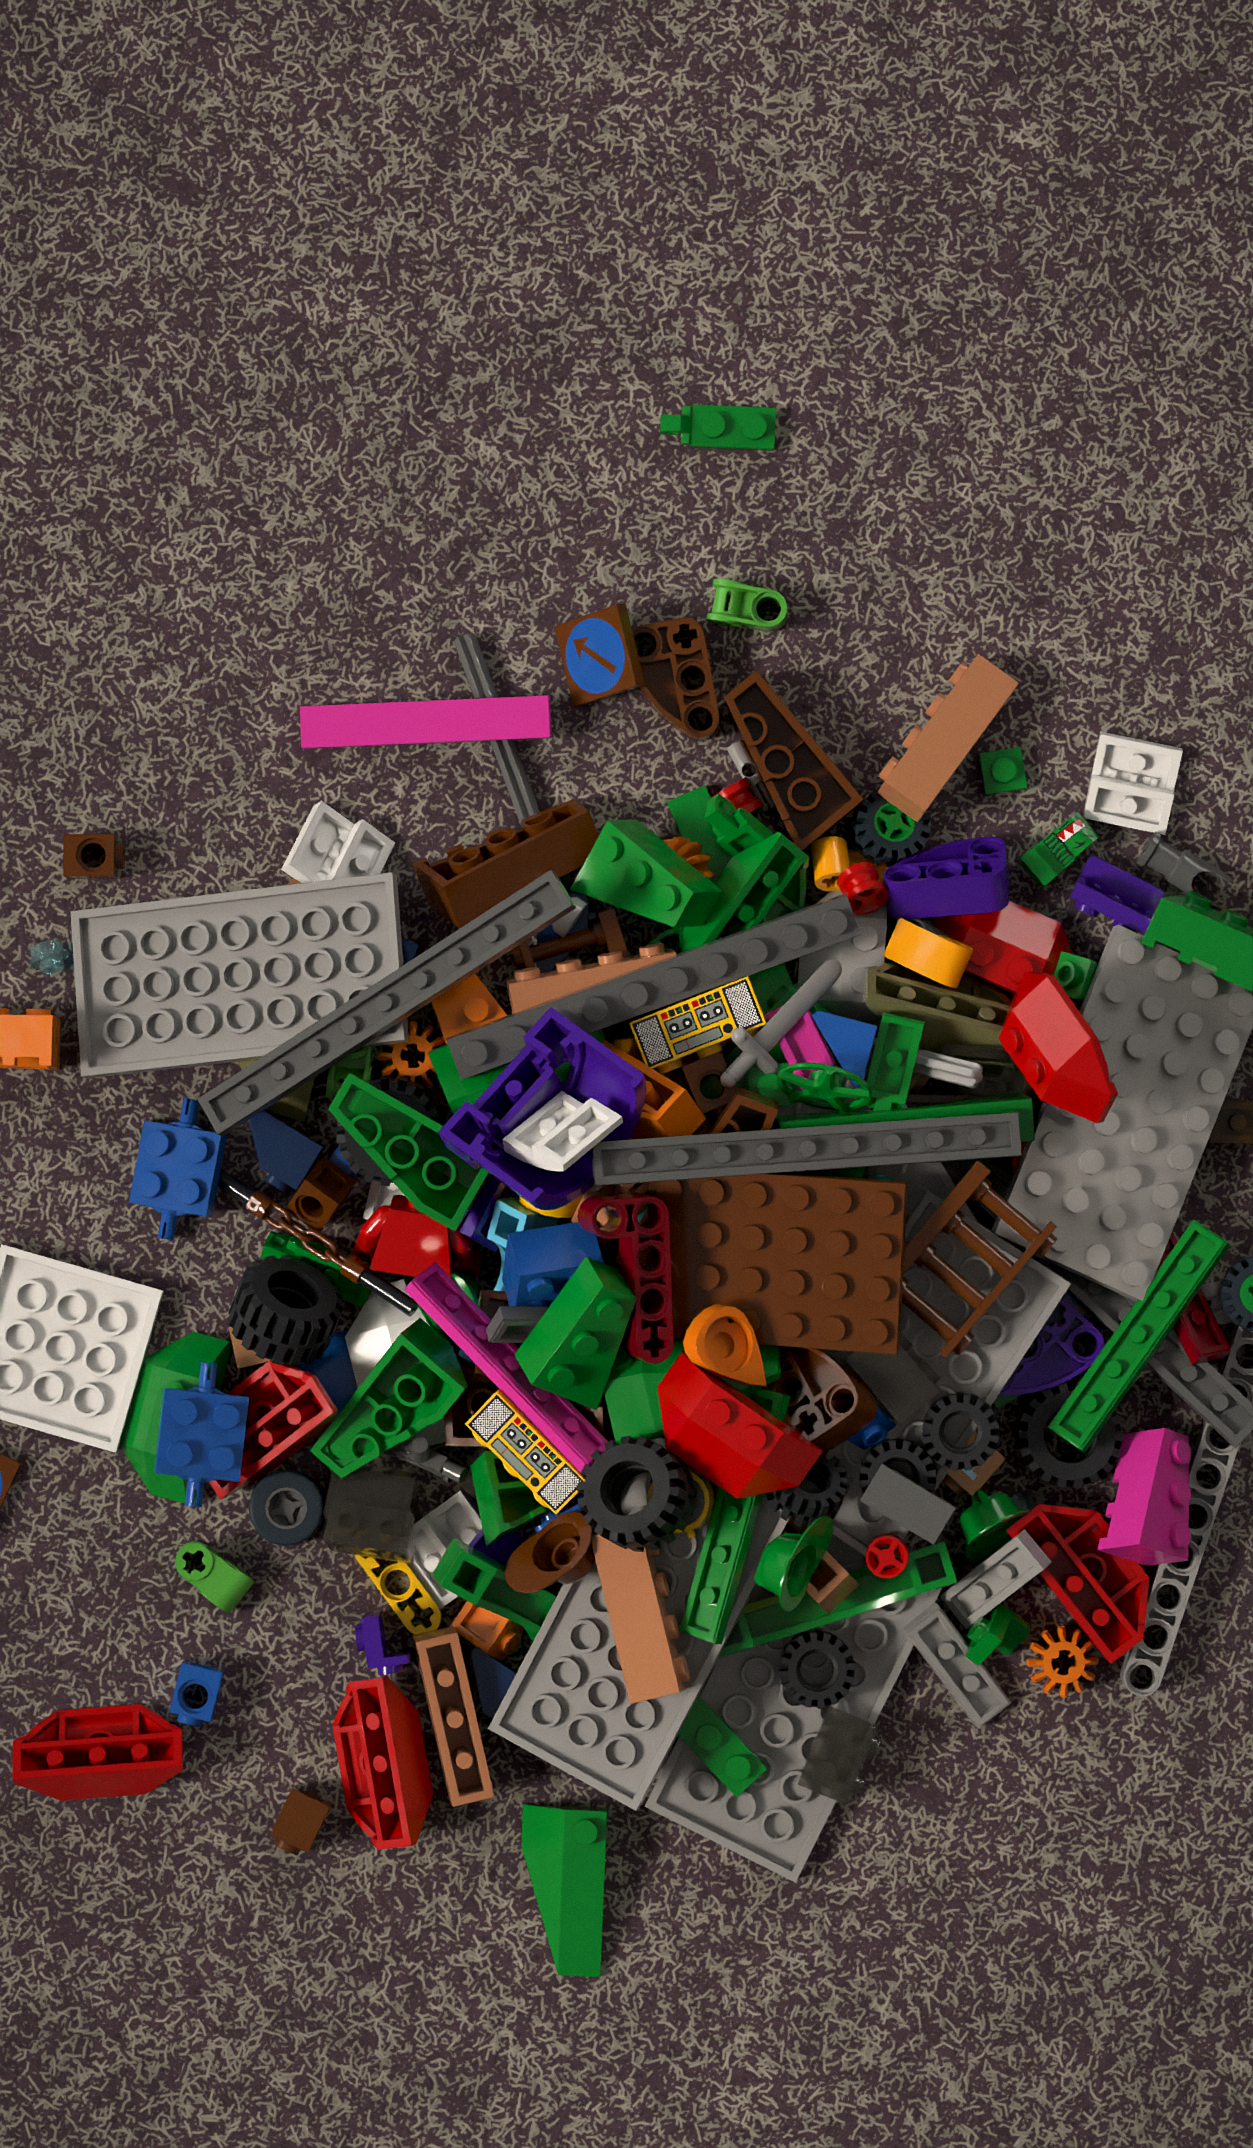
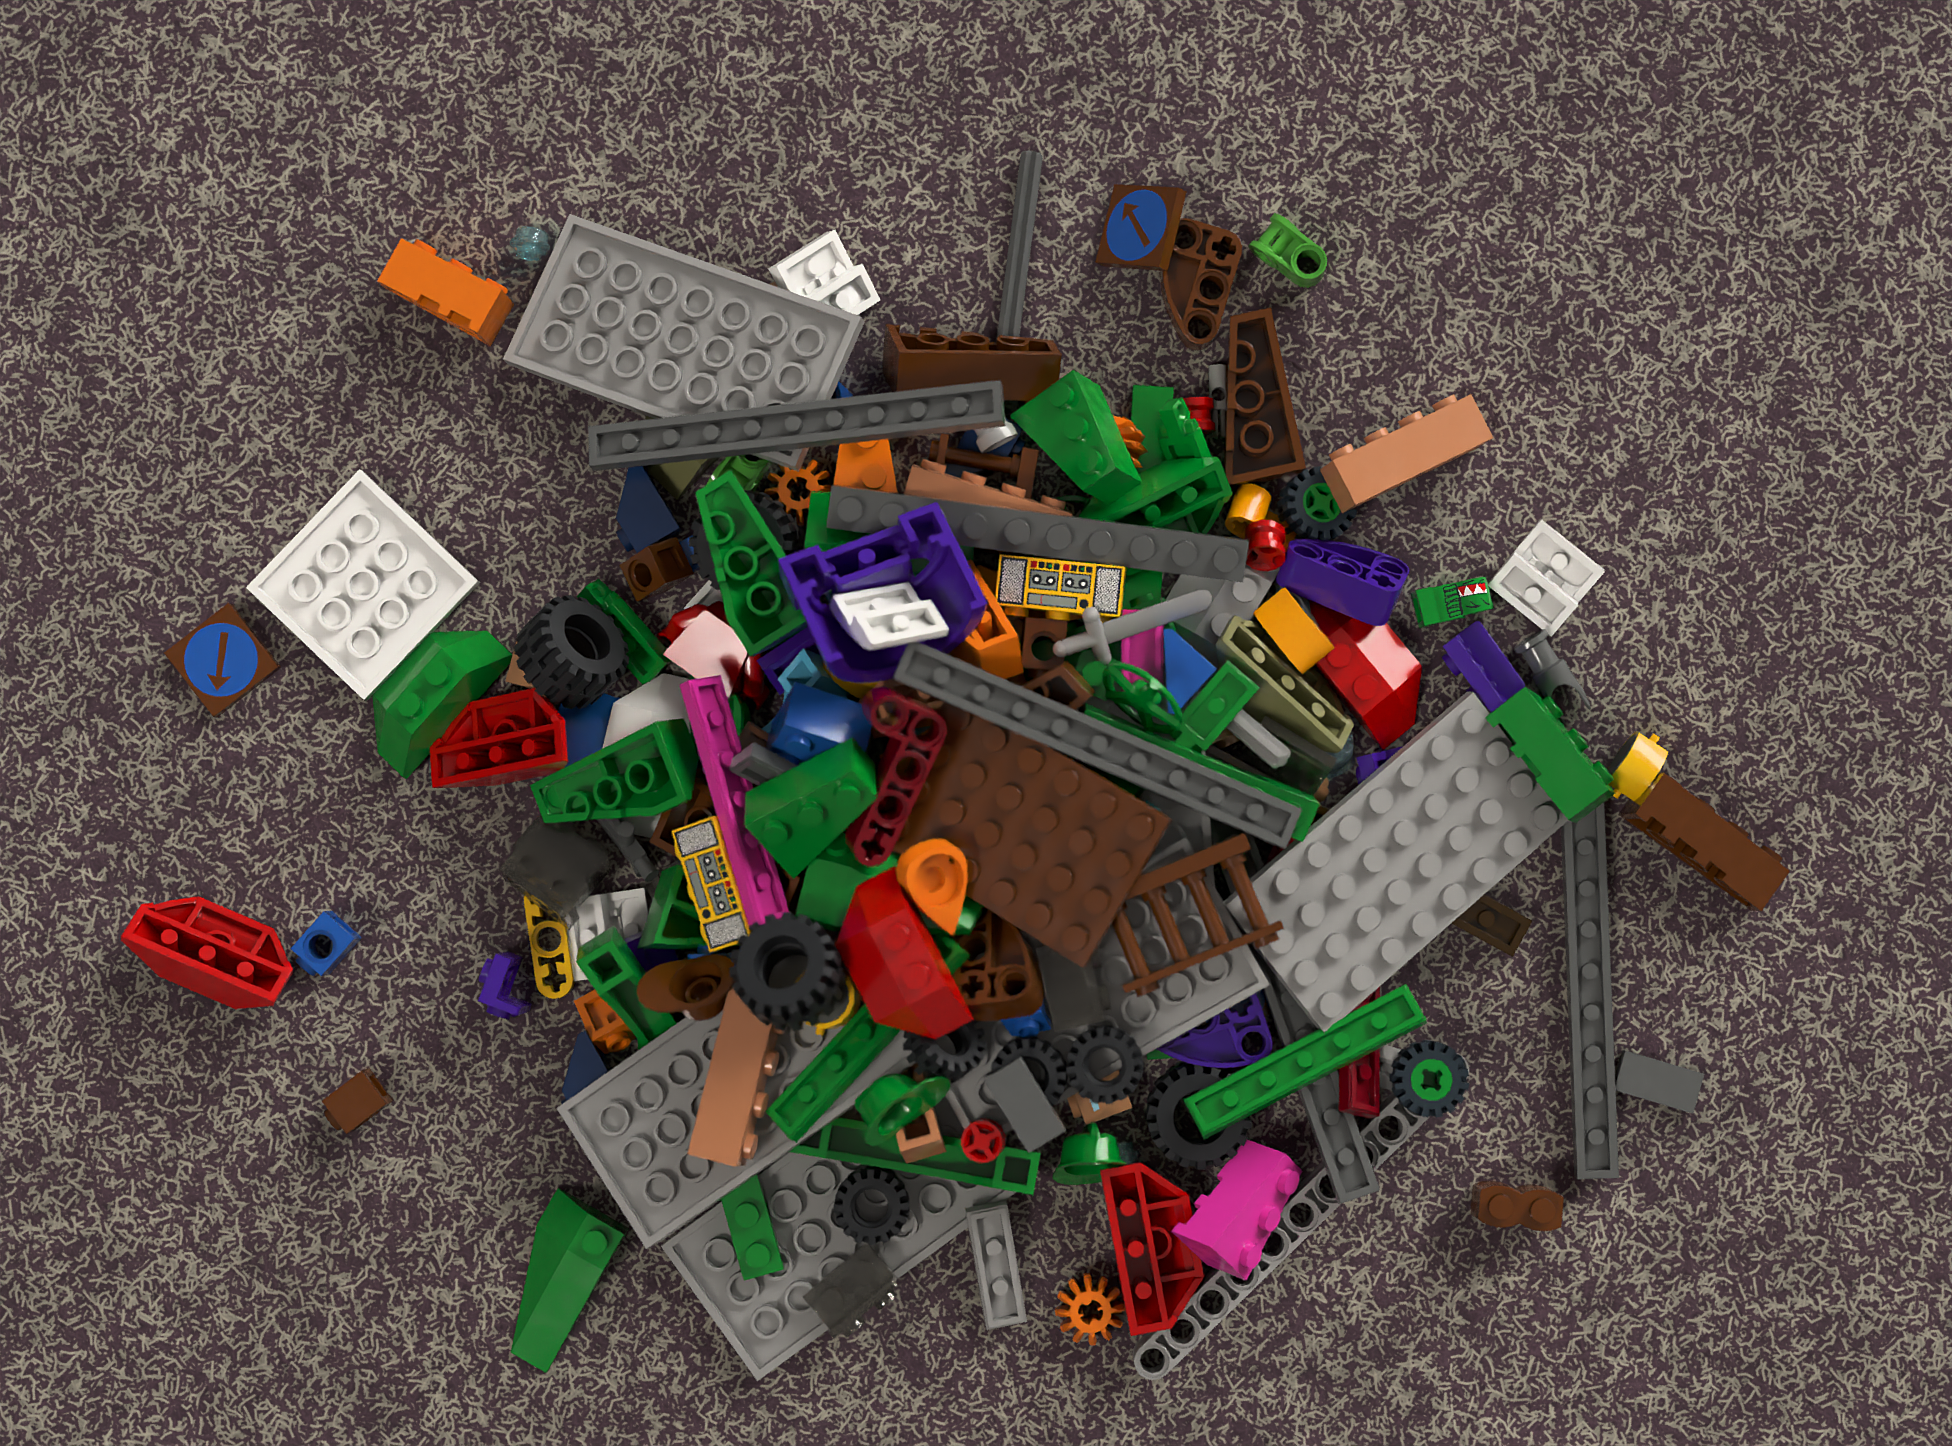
camera: 30 degrees right, 0 degrees up
(73, 856) = (600, 163): reddish brown brick -> none
(178, 1169) = (545, 483): blue plate -> none
(201, 1434) = (441, 721): blue plate -> none
(218, 1581) = (395, 857): bright green piece -> none
(276, 1516) = (472, 821): black wheel -> none
(351, 1268) = (602, 554): piece -> none
(383, 1762) = (454, 1090): red wedge -> none
(425, 722) = (960, 208): dark pink tile -> none
(453, 1716) = (533, 1081): nougat brick -> none
(723, 427) = (1348, 88): green hinge -> none
(995, 1579) = (1069, 1208): light grey plate -> none
(997, 1630) = (1047, 1252): green bracket -> none
(1002, 771) = (1438, 509): green plate -> none
(1057, 1049) = (1365, 772): red wedge -> none
(1075, 974) = (1408, 717): green bracket -> none

